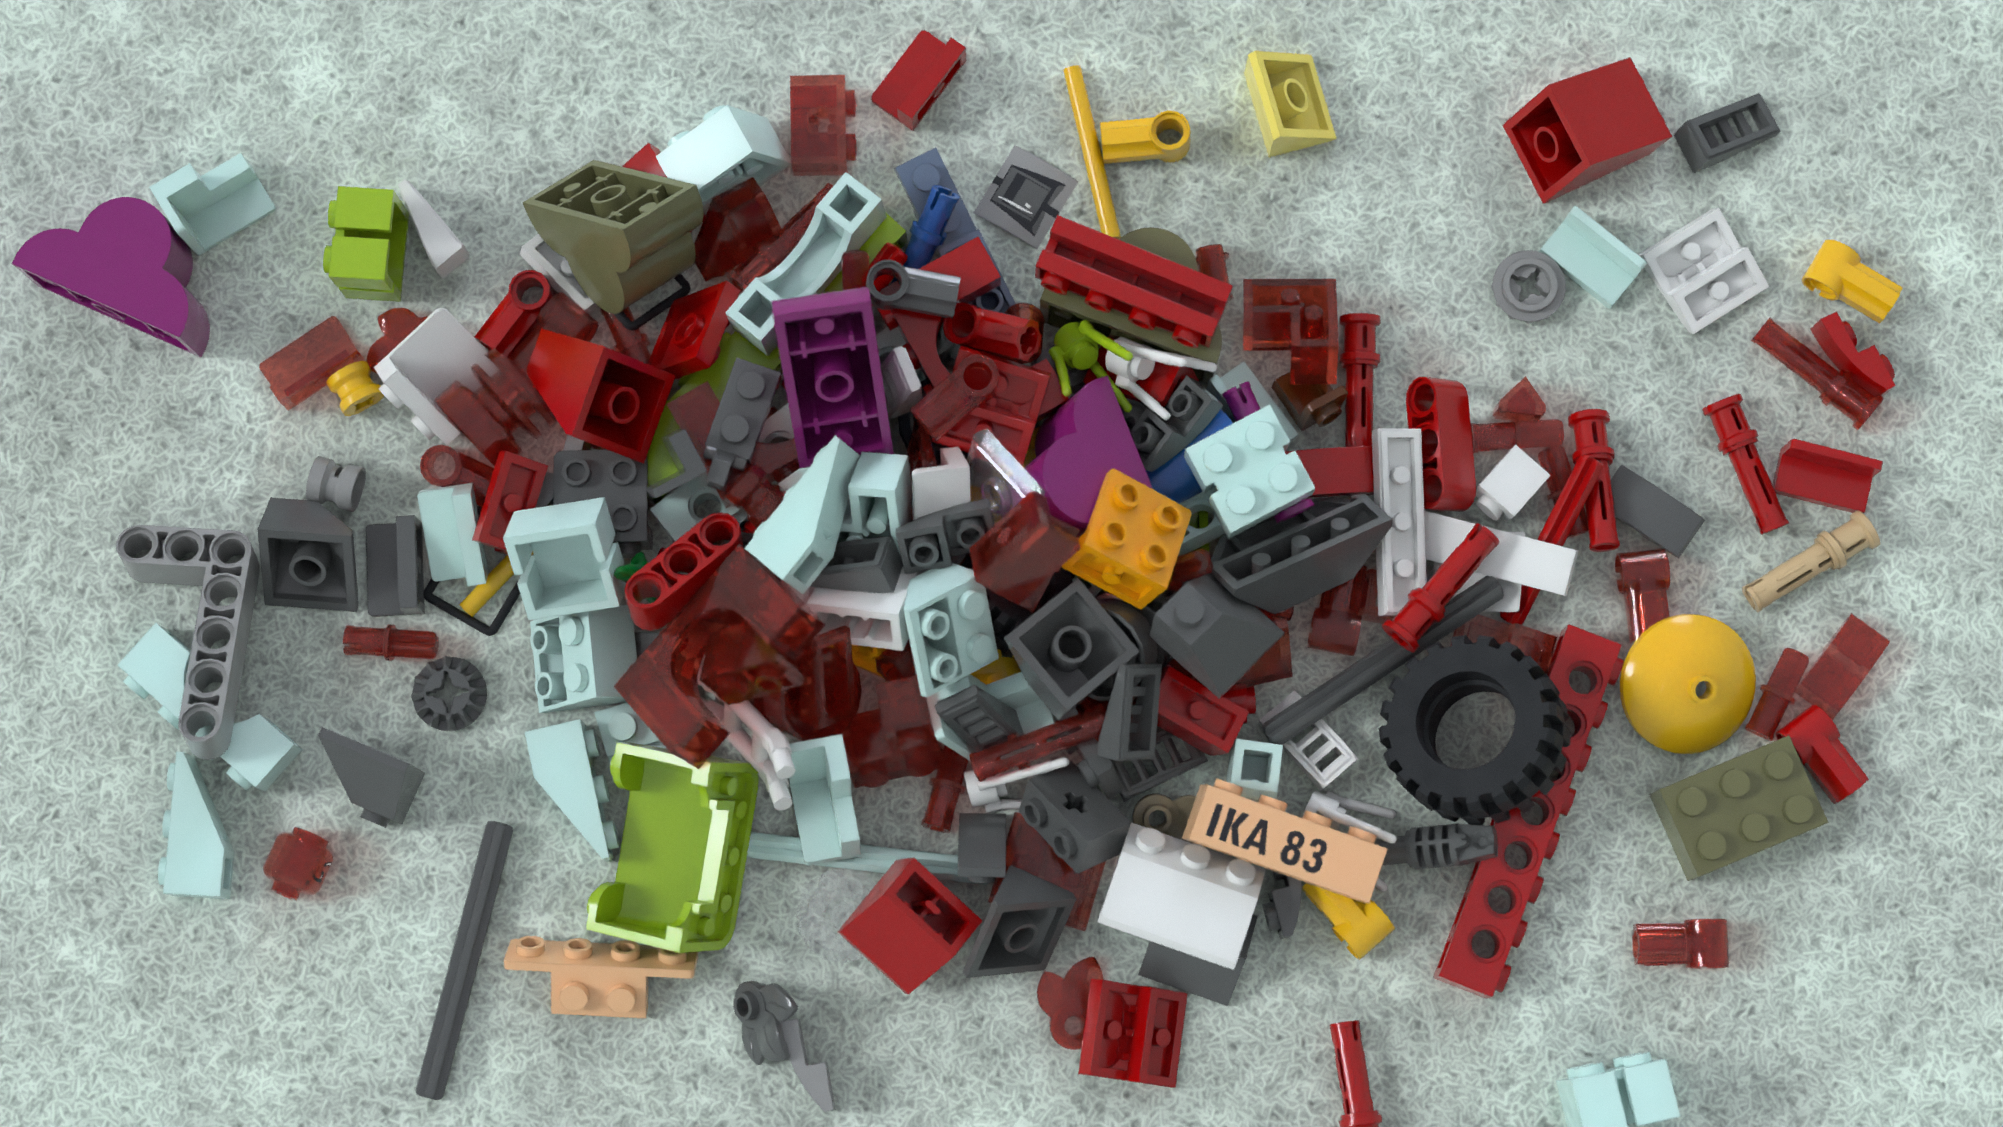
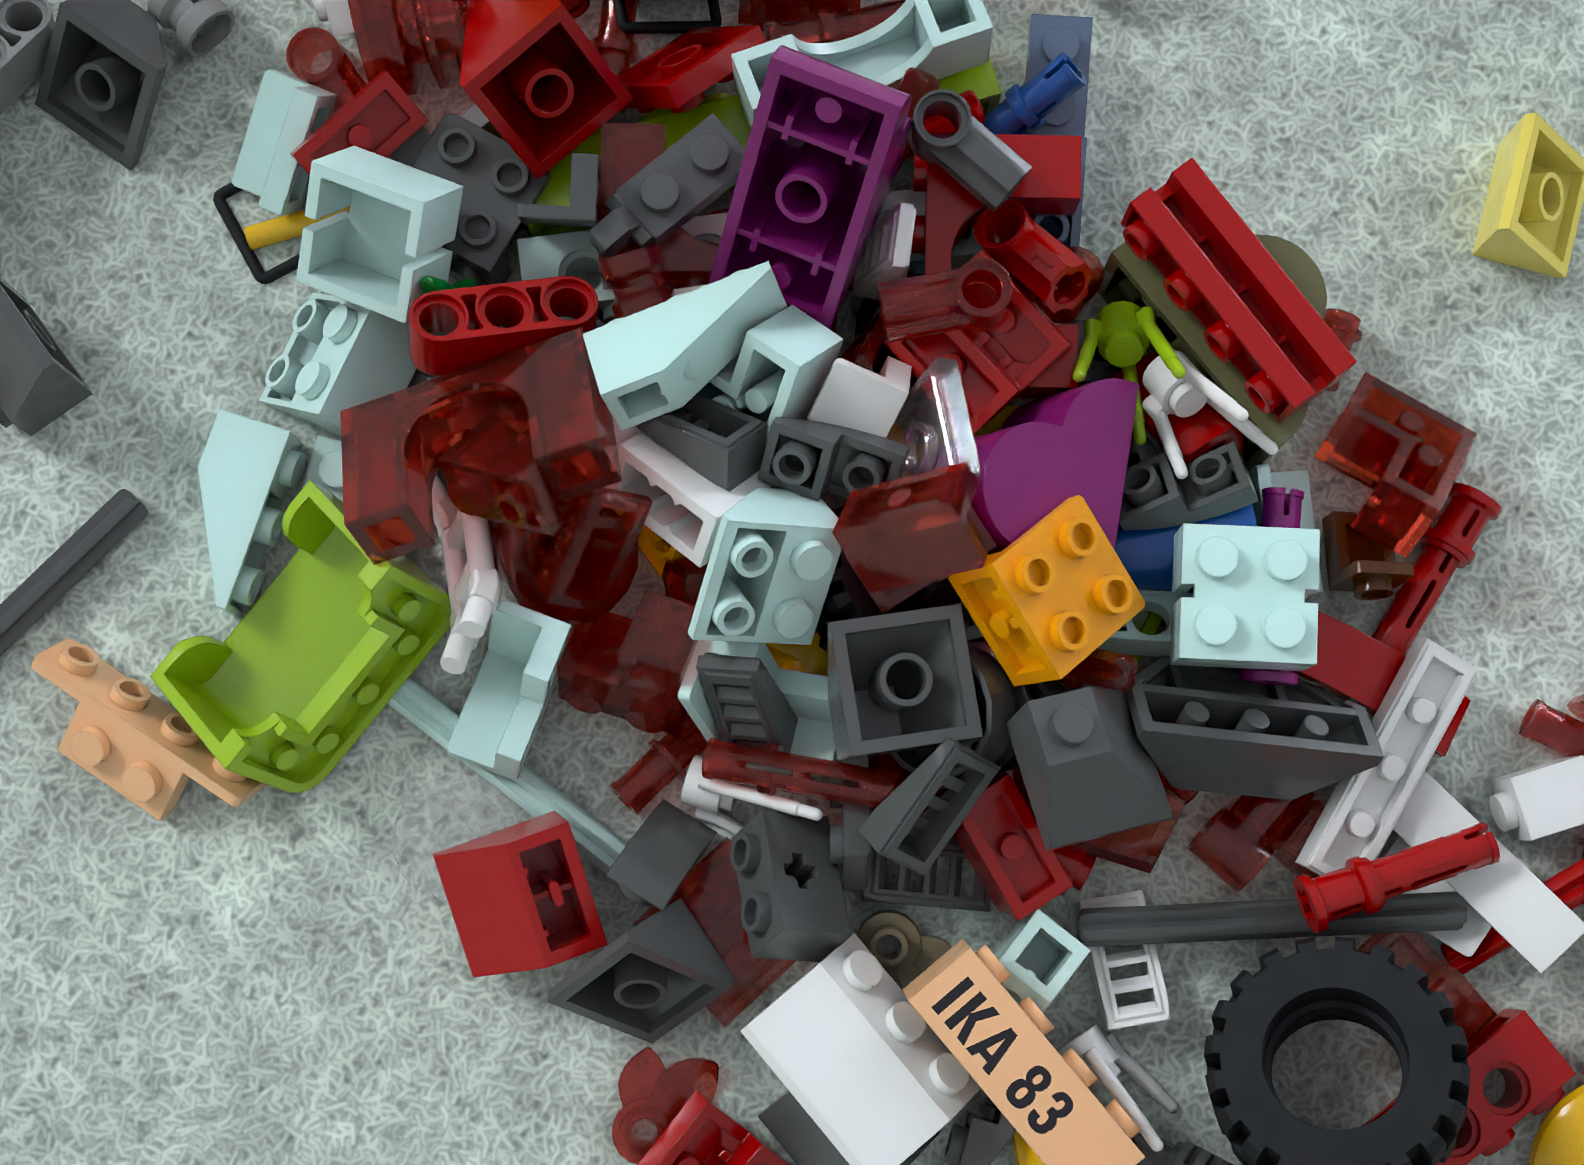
camera: 30 degrees right, 0 degrees up
(390, 642) = (141, 223): clear red axle -> none
(395, 567) = (200, 146): dark grey panel -> none
(465, 707) = (178, 345): dark grey gear -> none
(761, 1012) = (293, 894): dark grey plate -> none
(813, 1077) = (304, 1009): light grey slope -> none
(1026, 196) = (1160, 135): sticker -> none
(1091, 151) = (1272, 120): yellow bar -> none
(1139, 139) = (1335, 148): yellow piece -> none
(1443, 416) = (1495, 711): red beam -> none

